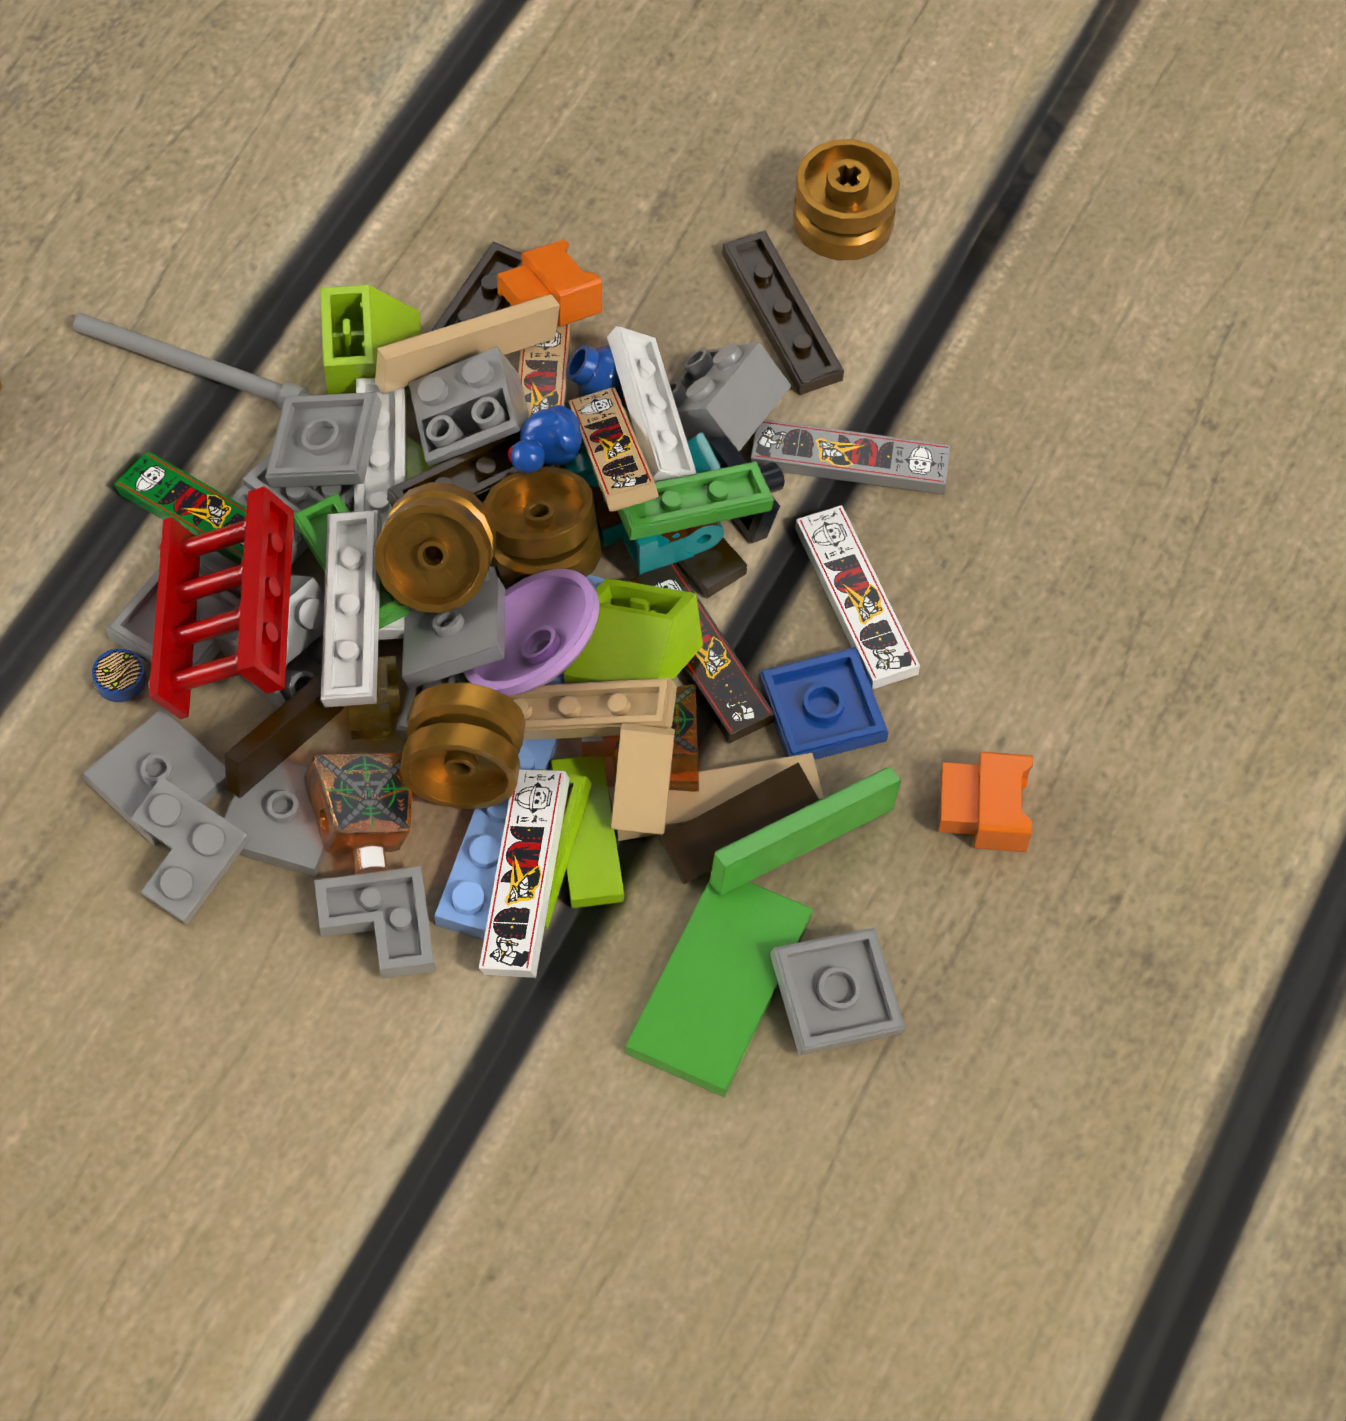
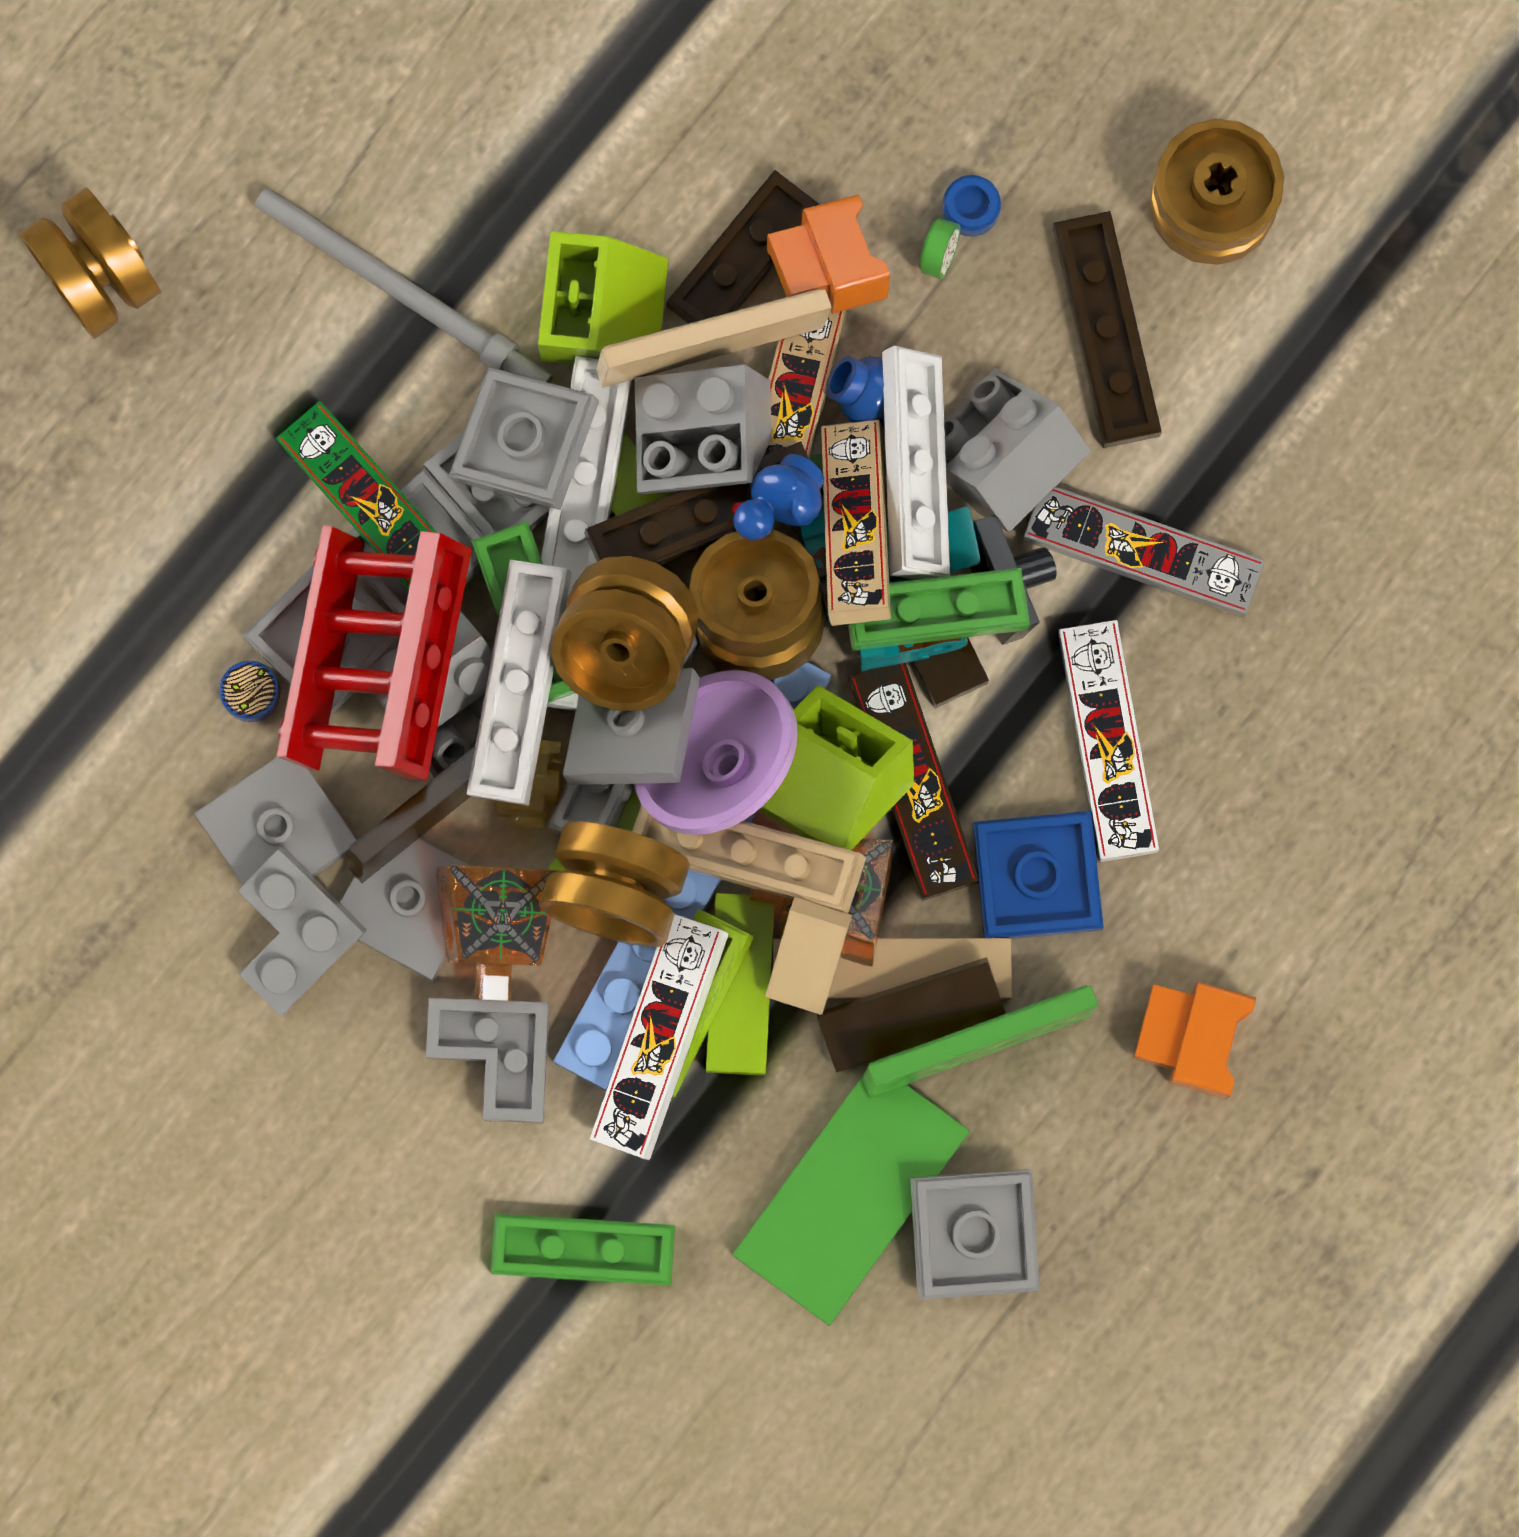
camera: 15 degrees right, 20 degrees up
(489, 1070) = (583, 1250): none -> bright green tile
(636, 271) = (939, 248): none -> bright green tile
(654, 245) = (972, 204): none -> blue tile

